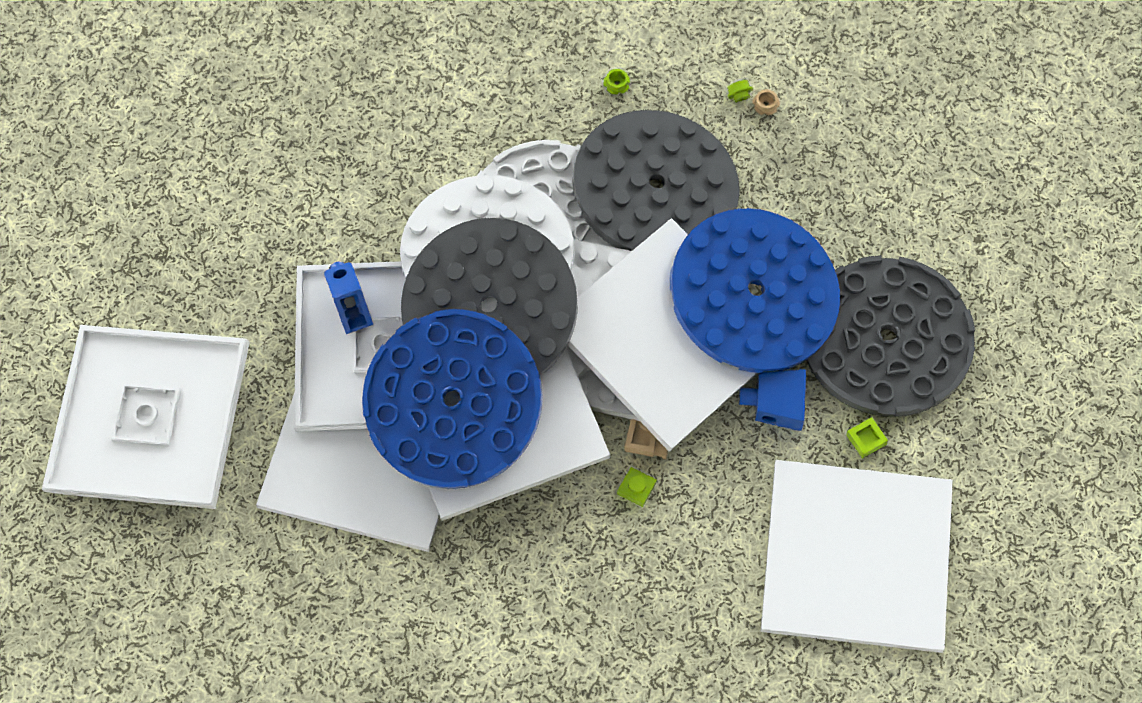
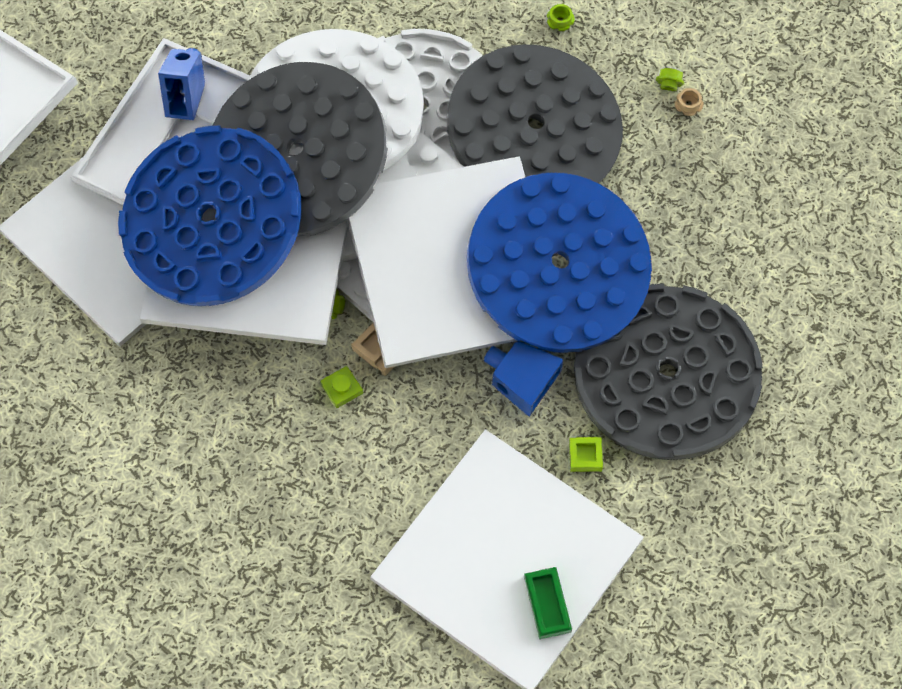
camera: 30 degrees right, 0 degrees up
(913, 572) = (547, 603): none -> green tile

